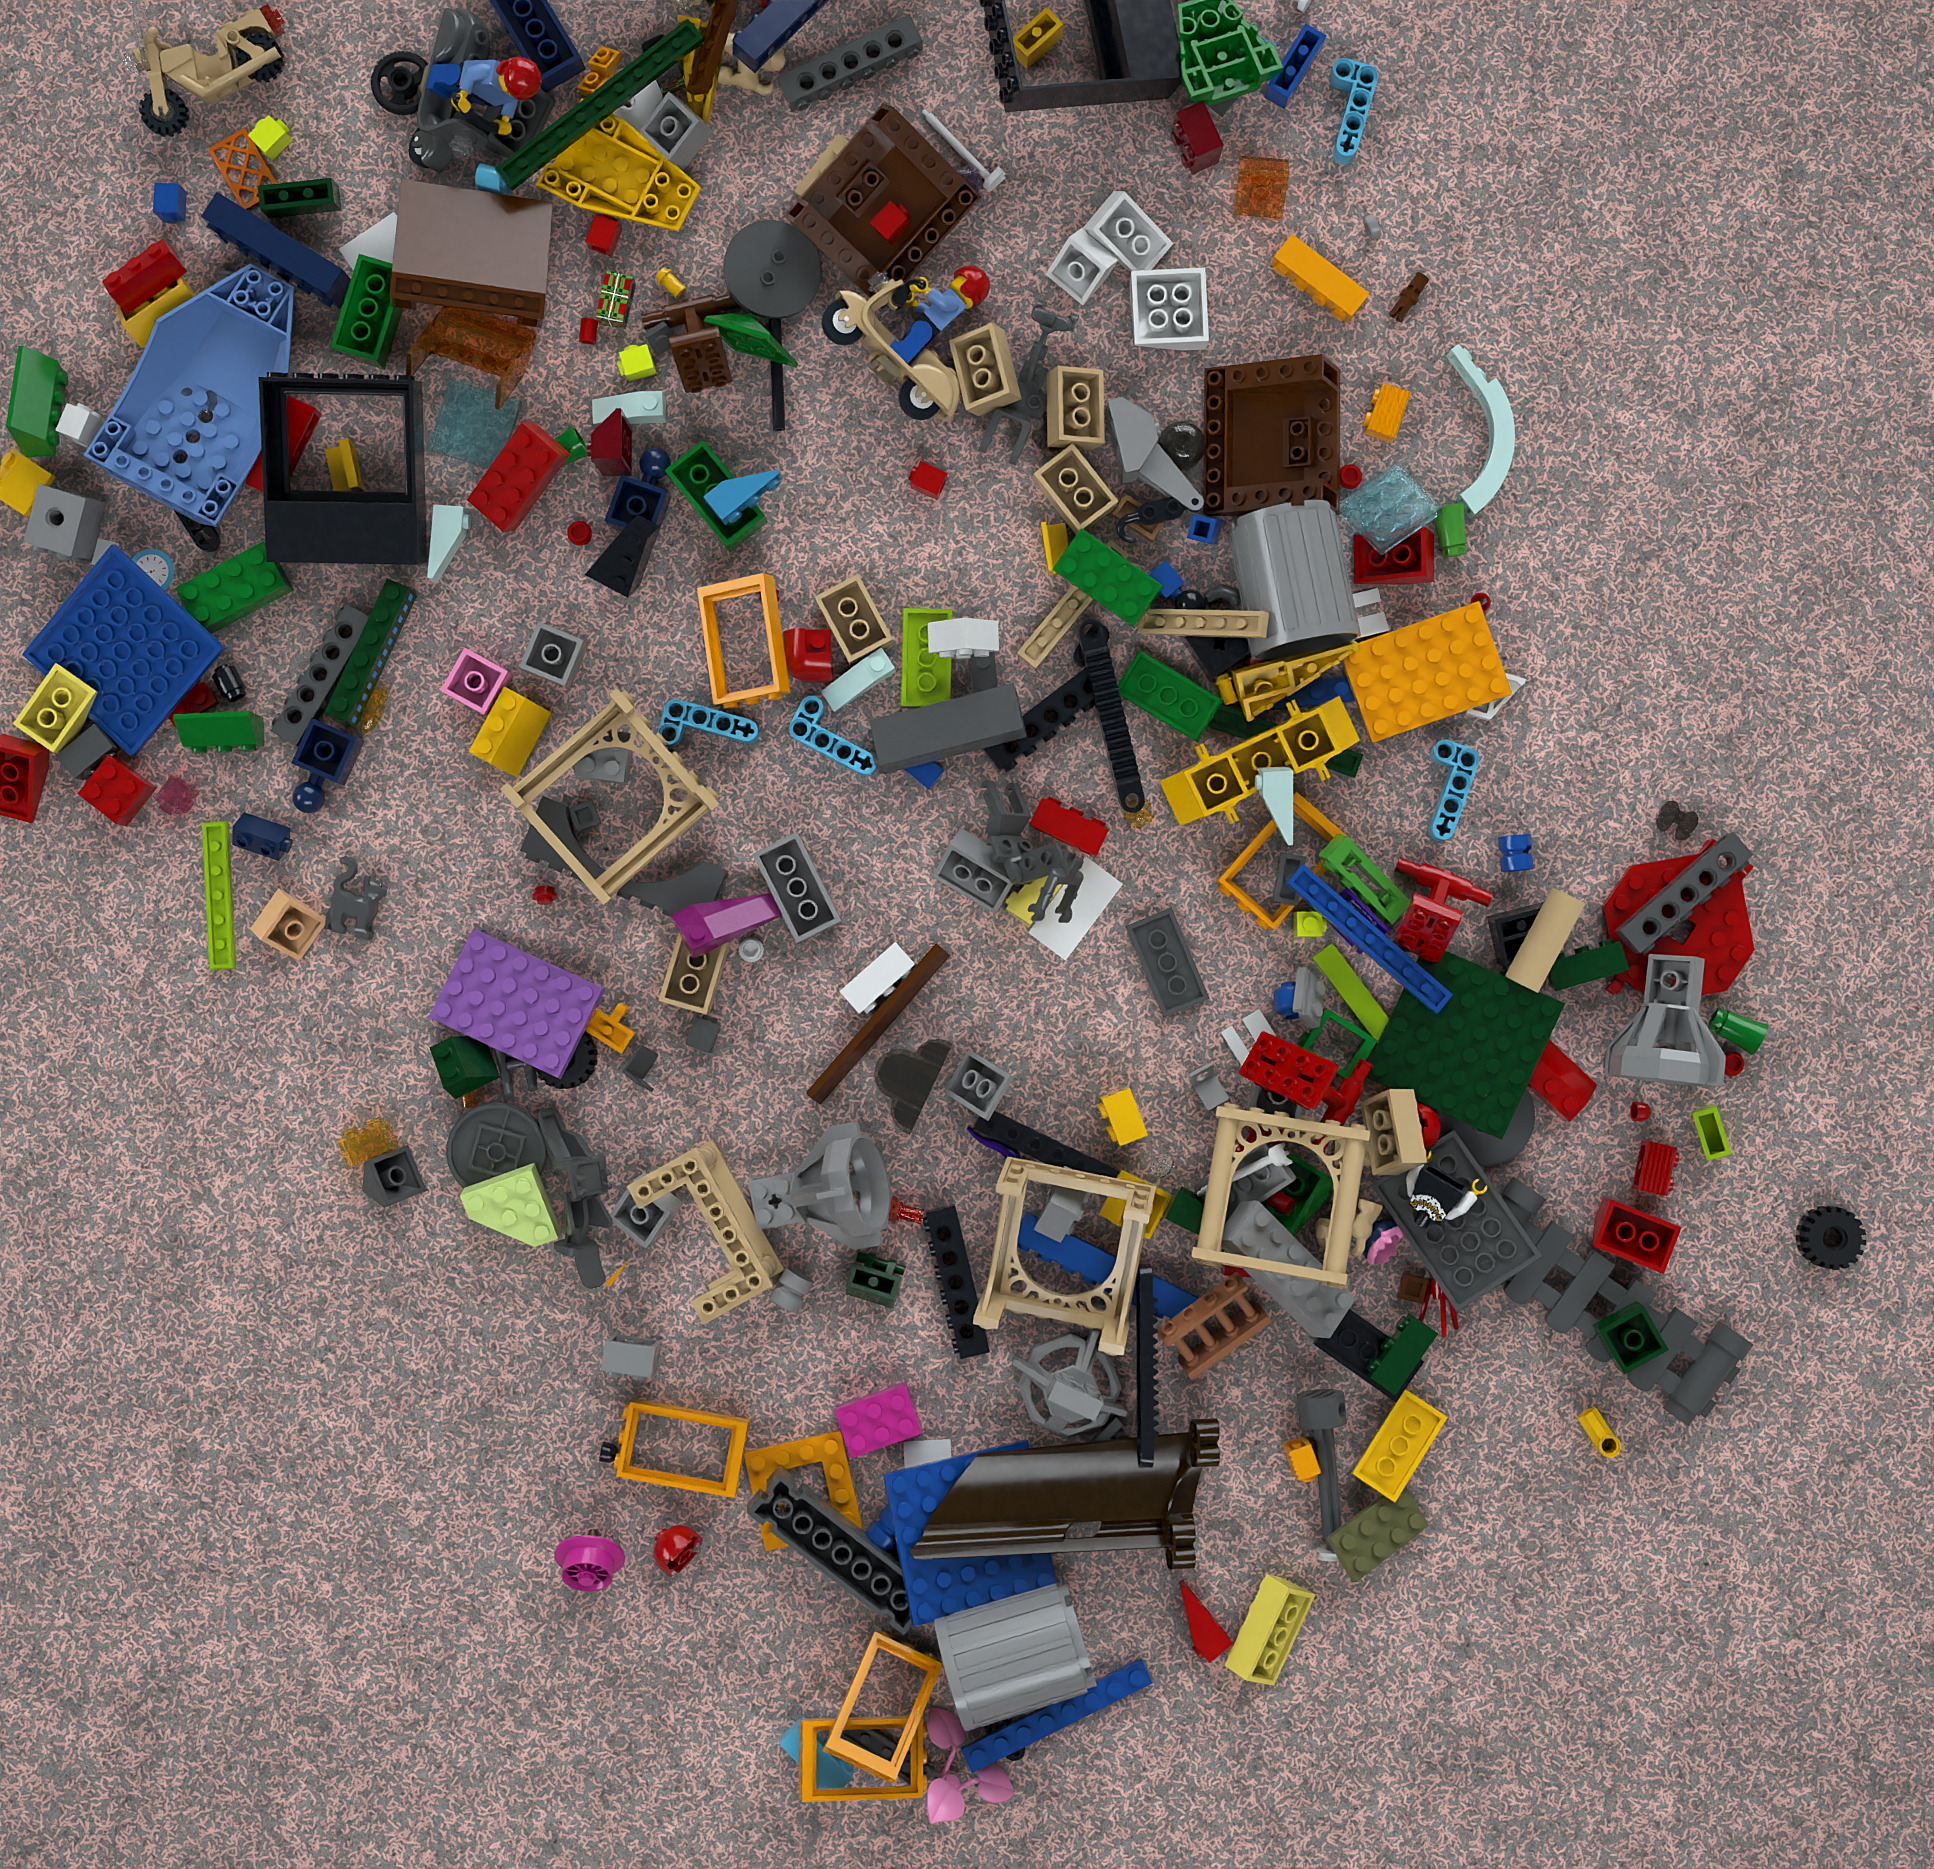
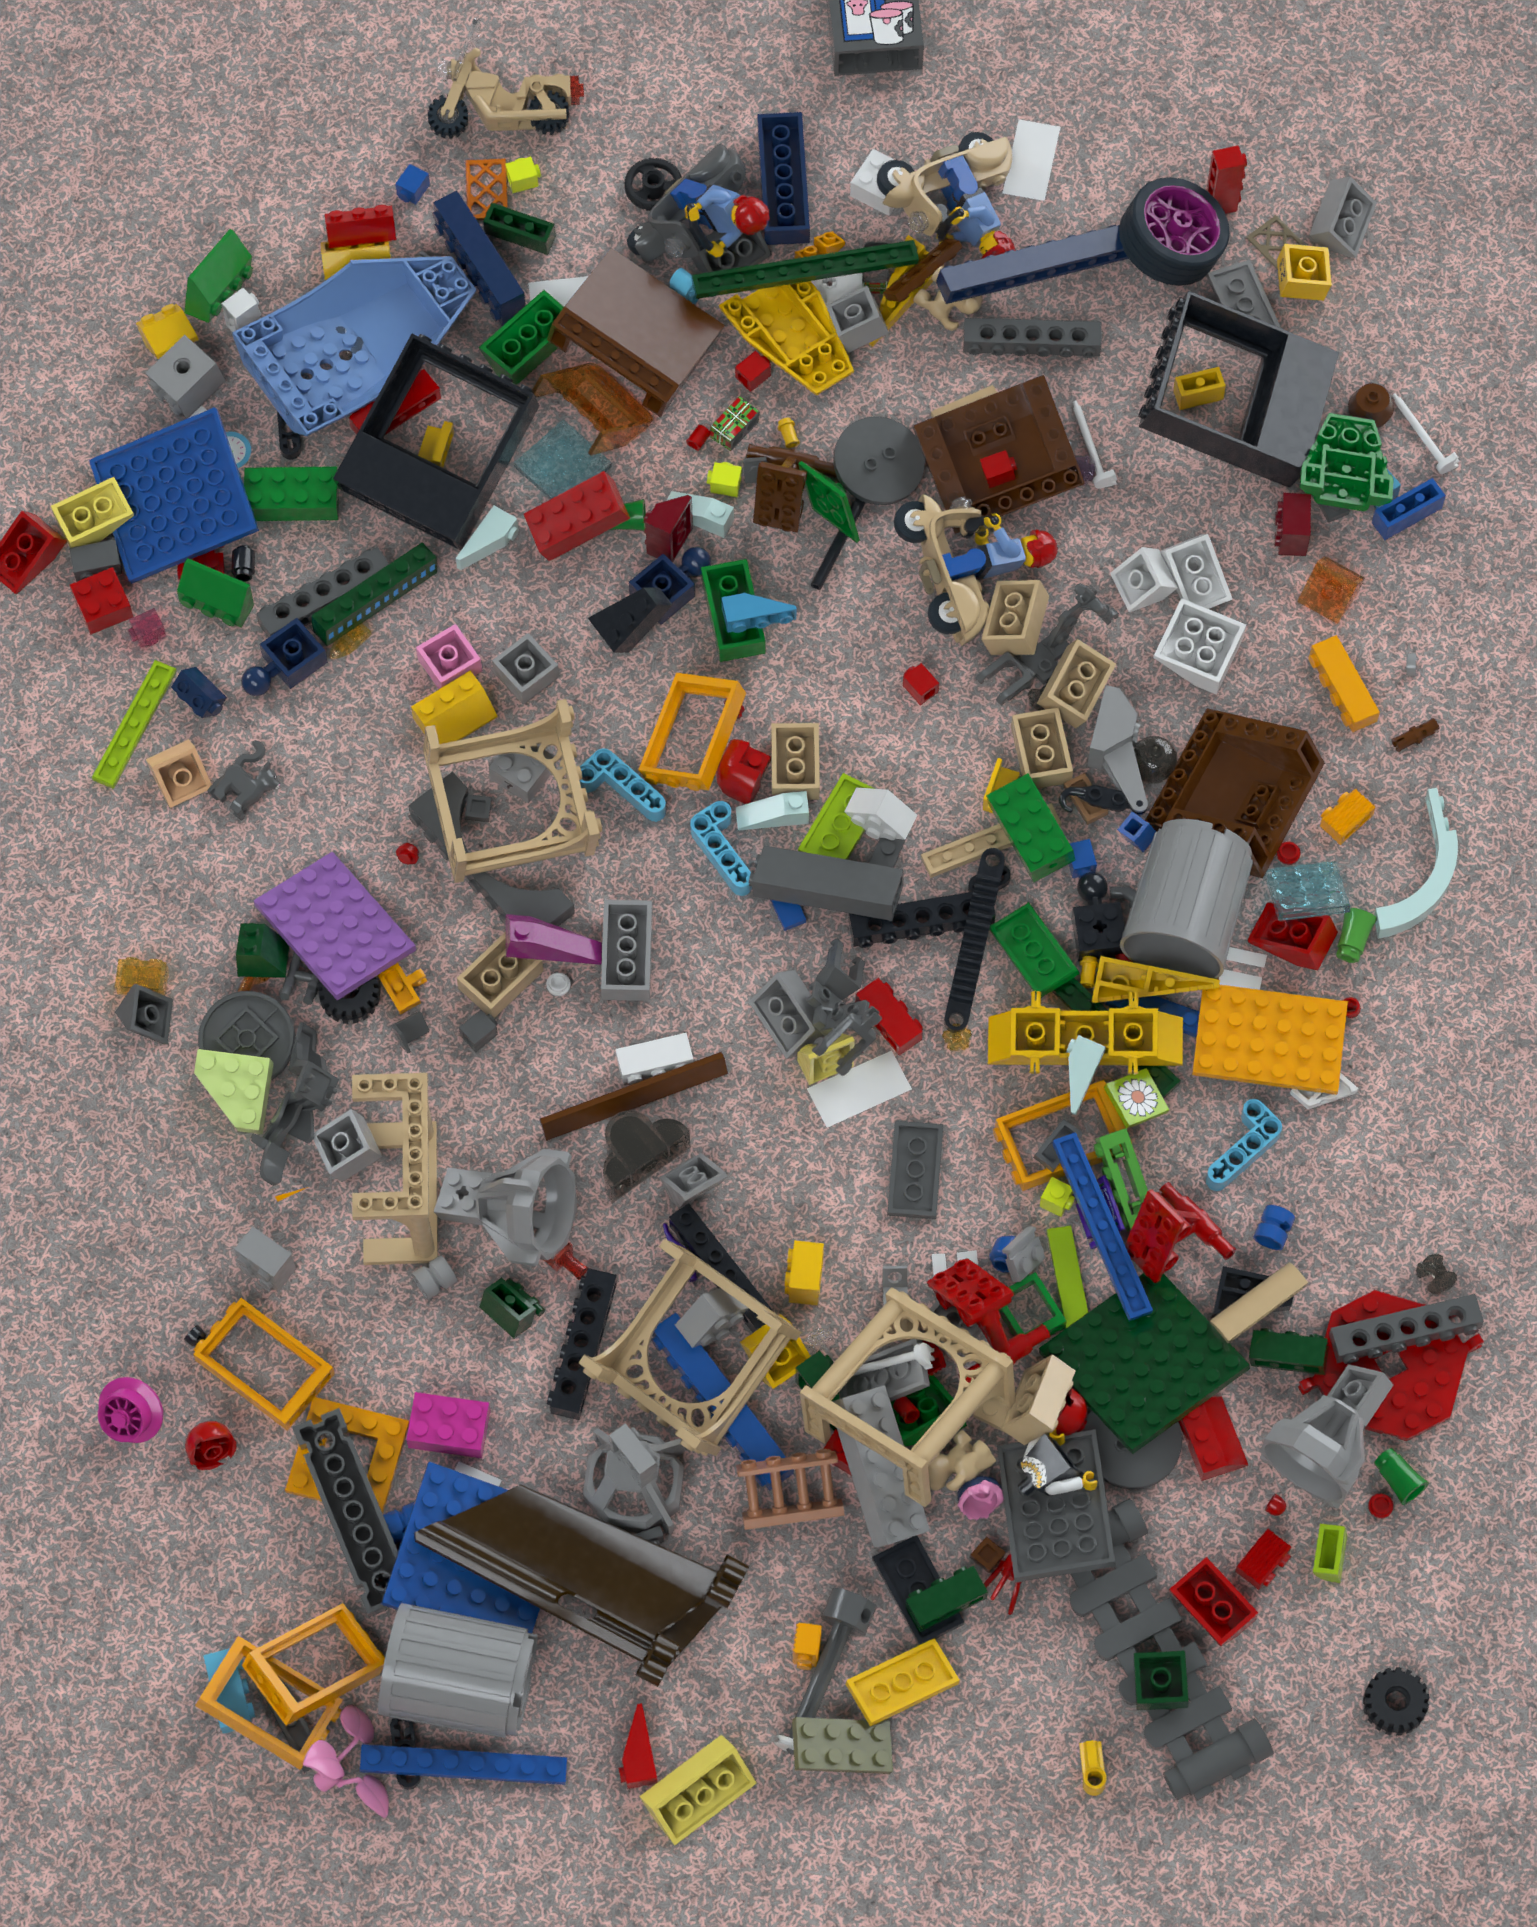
camera: 25 degrees right, 20 degrees down
(579, 533) = (601, 587): red plate -> none
(1144, 1366) = (711, 1488): black gear -> none
(1204, 623) = (1092, 896): tan plate -> none
(1336, 796) = (1136, 1098): none -> tile
(1352, 113) = (1439, 569): medium azure beam -> none

